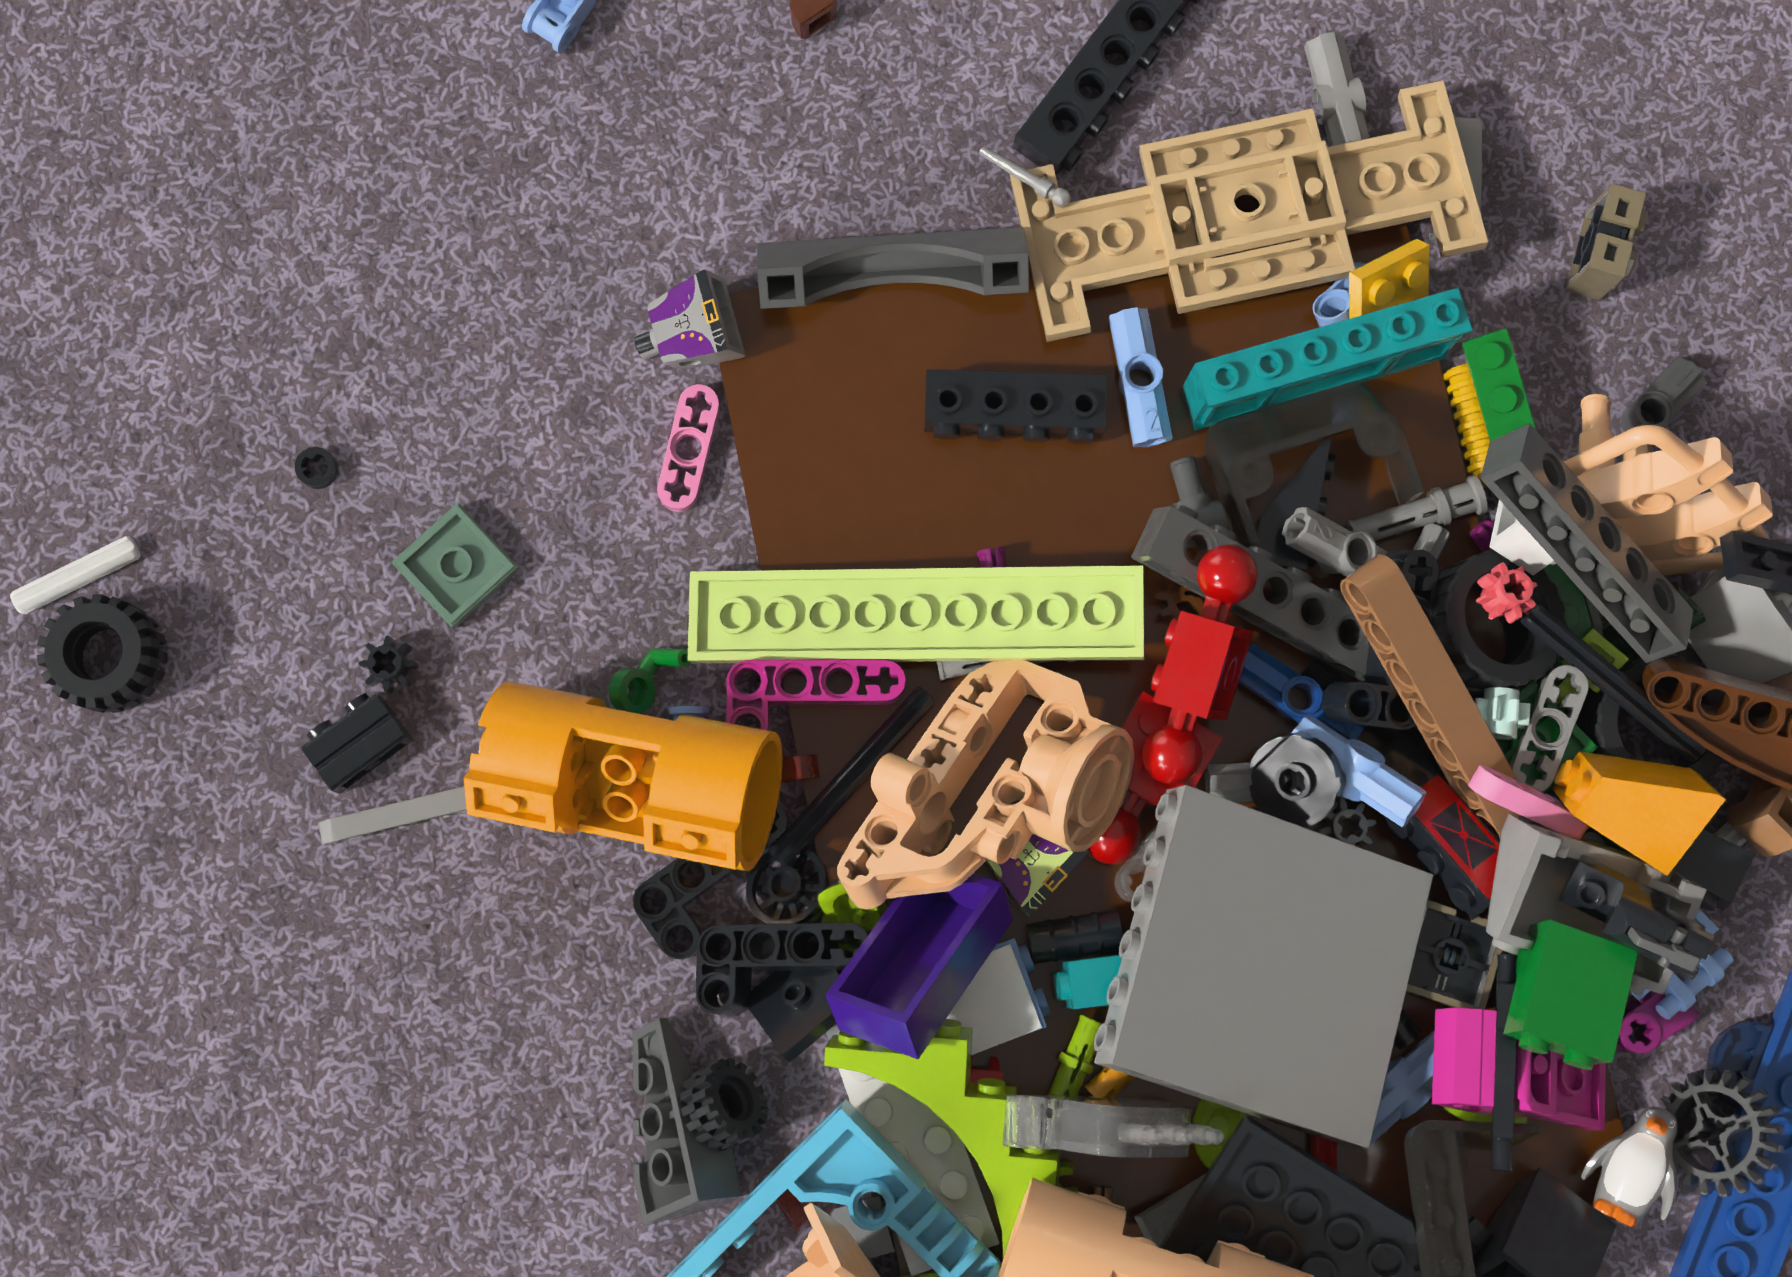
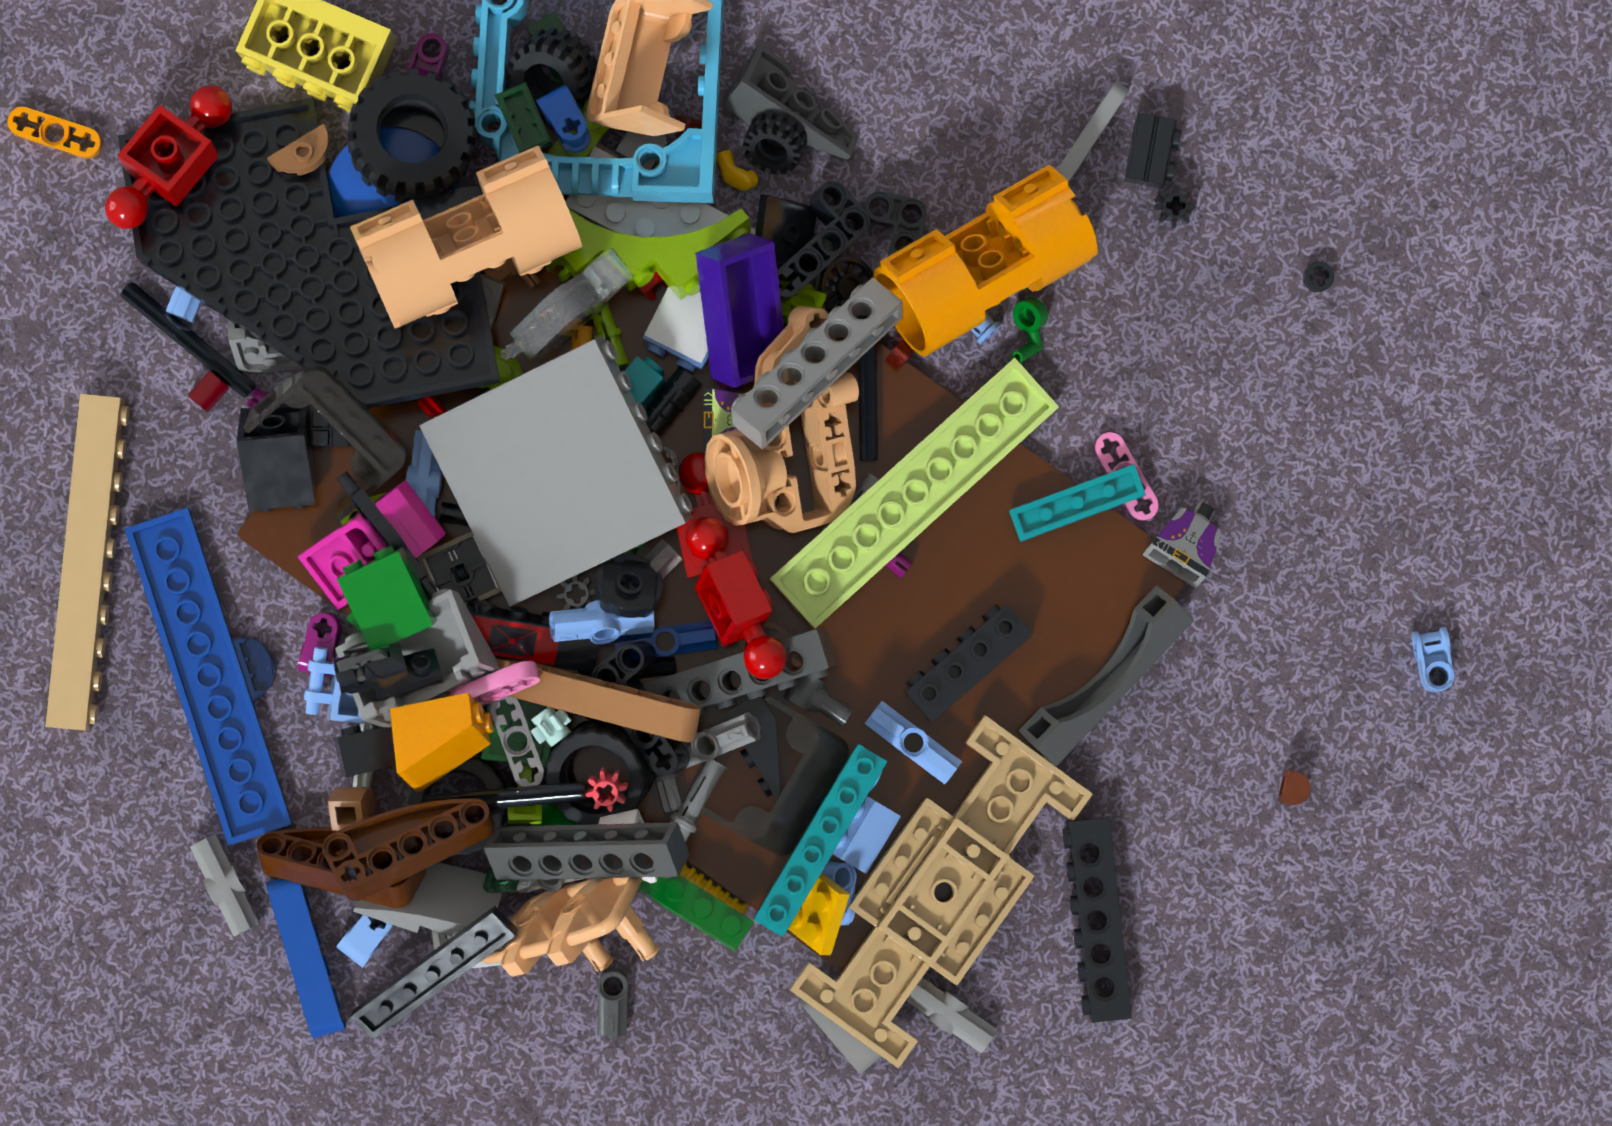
camera: 140 degrees right, 5 degrees up
(67, 642) = (1312, 91): black tyre -> none
(75, 575) = (1391, 99): white axle -> none
(455, 565) = (1190, 294): sand green plate -> none
(761, 461) = (1077, 503): none -> teal plate
(794, 1109) = (733, 175): none -> yellow arm
(814, 693) = (929, 403): dark pink beam -> none
(1014, 805) = (765, 423): none -> light grey brick
(1041, 185) = (1066, 800): light grey piece -> none
(1268, 322) = (866, 835): none -> light blue brick
(1606, 242) = (729, 1071): dark tan piece -> none
(1637, 1169) = (263, 549): animal -> none
(1727, 1149) = (253, 611): dark grey gear -> none

